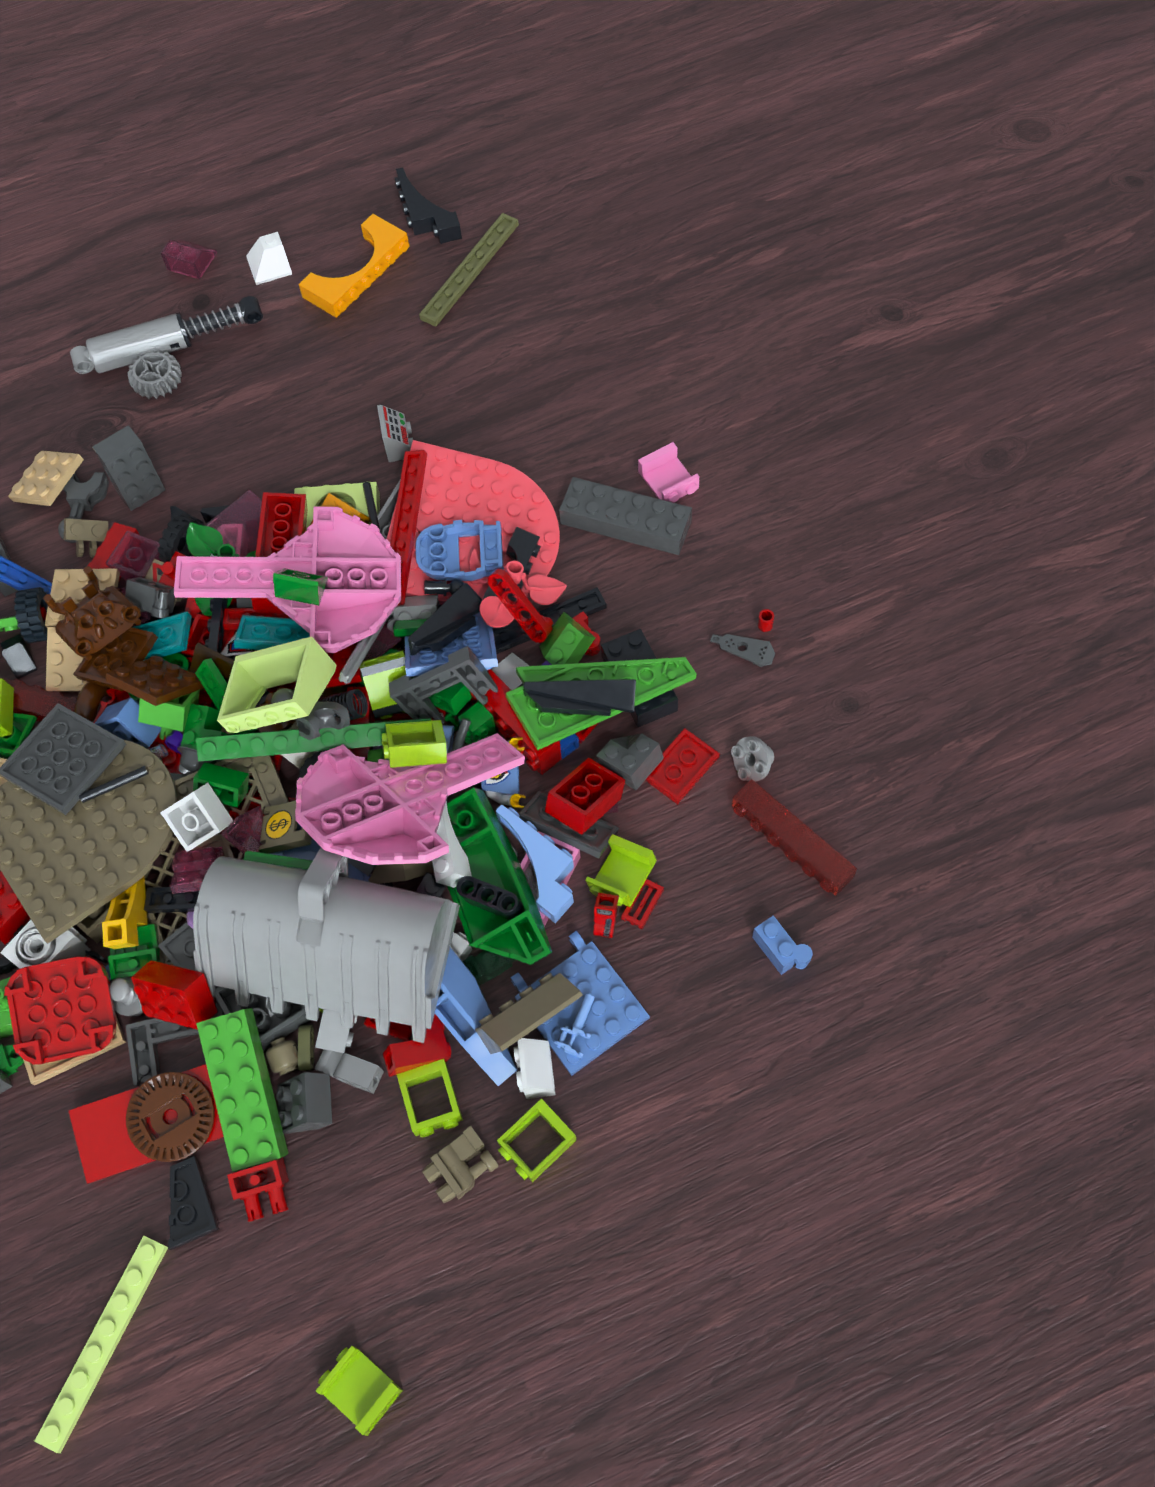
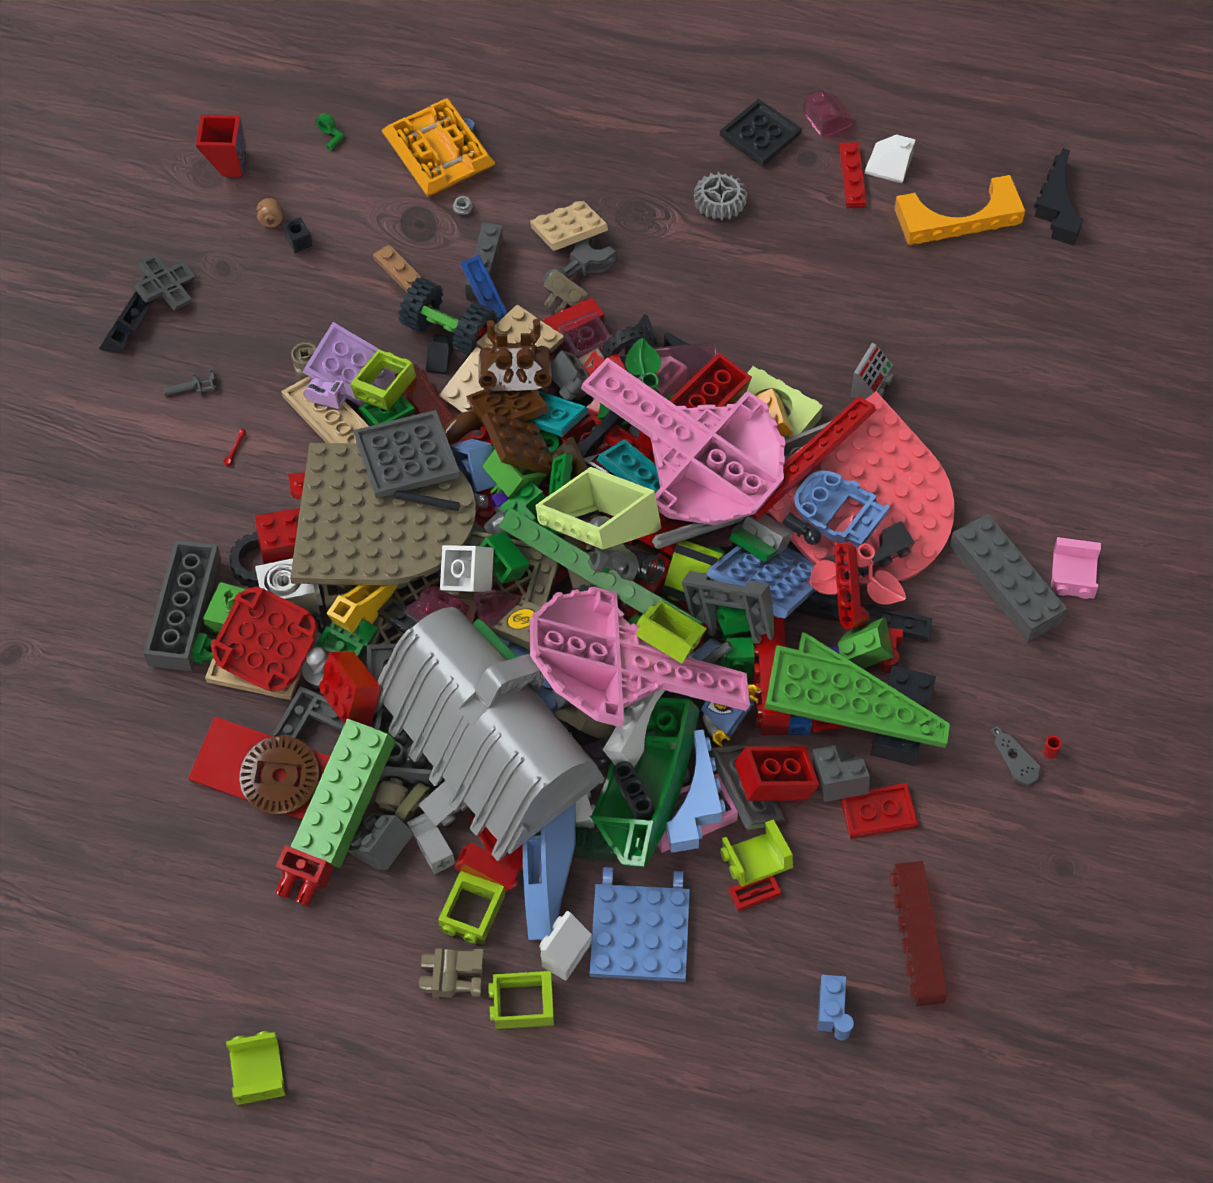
camera: 35 degrees right, 5 degrees down
(101, 1345) = (113, 896): yellowish green plate -> none
(129, 468) = (634, 261): dark grey brick -> none
(144, 301) = (760, 132): none -> black plate
(163, 334) = (751, 167): light grey piece -> none
(190, 1204) = (245, 849): black wing -> none
(244, 287) = (852, 175): none -> red plate
(299, 586) = (681, 445): green slope -> none
(370, 504) = (800, 422): black bar -> none
(447, 622) = (779, 557): black wedge -> none
(468, 270) = (1055, 277): olive plate -> none
(507, 670) = (794, 630): white sticker -> none
(526, 1013) = (590, 898): dark tan slope -> none
(577, 1027) = (622, 941): light blue piece -> none
(583, 696) = (834, 692): black wedge -> none
(605, 915) = (713, 878): red leg -> none
(752, 758) = (940, 847): light grey plate -> none

